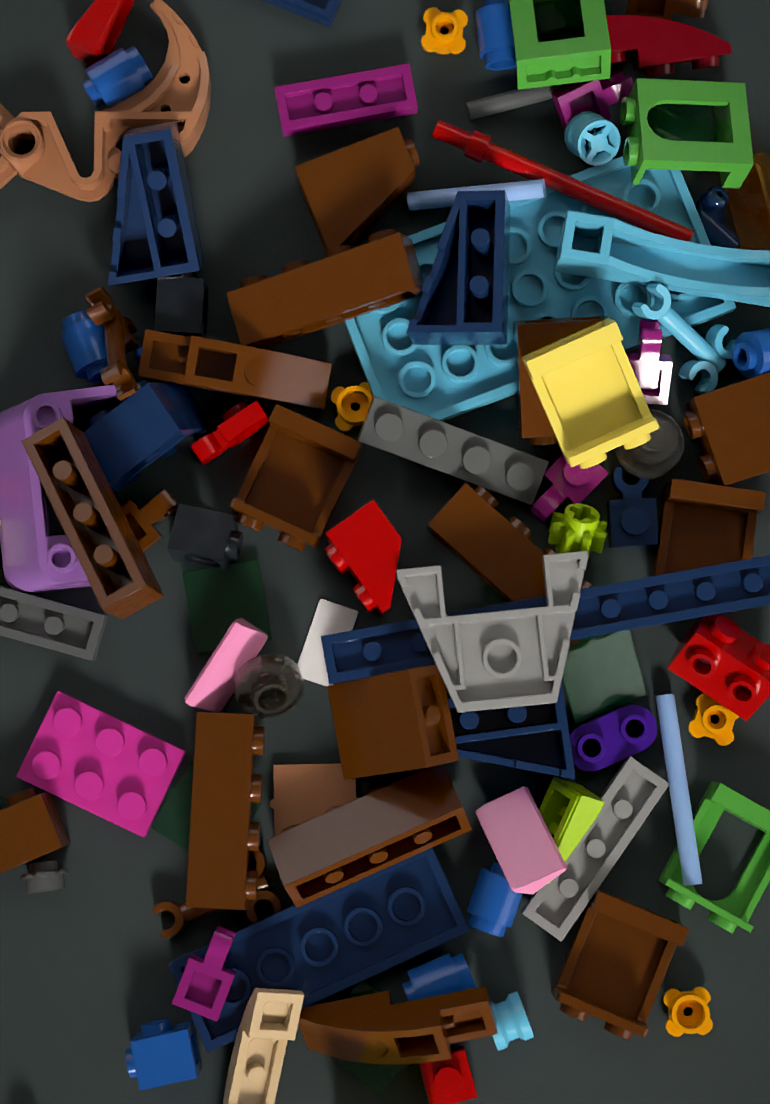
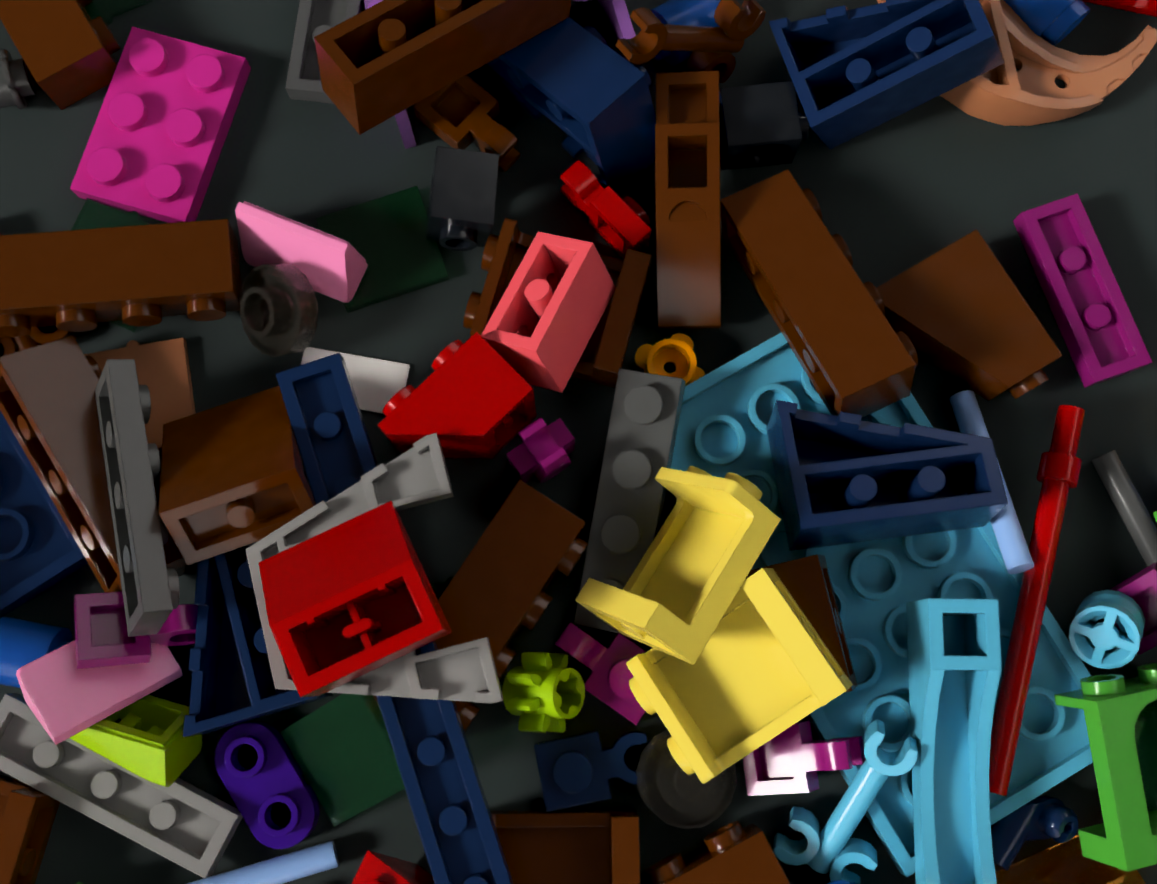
camera: 80 degrees right, 5 degrees down
(309, 482) = (550, 309): none -> coral brick
(402, 795) = (131, 470): none -> dark grey plate
(409, 506) = (542, 451): none -> magenta plate
(493, 817) = (103, 632): none -> magenta plate
(508, 635) = (349, 601): none -> red slope
(511, 413) = (690, 565): none -> light yellow panel

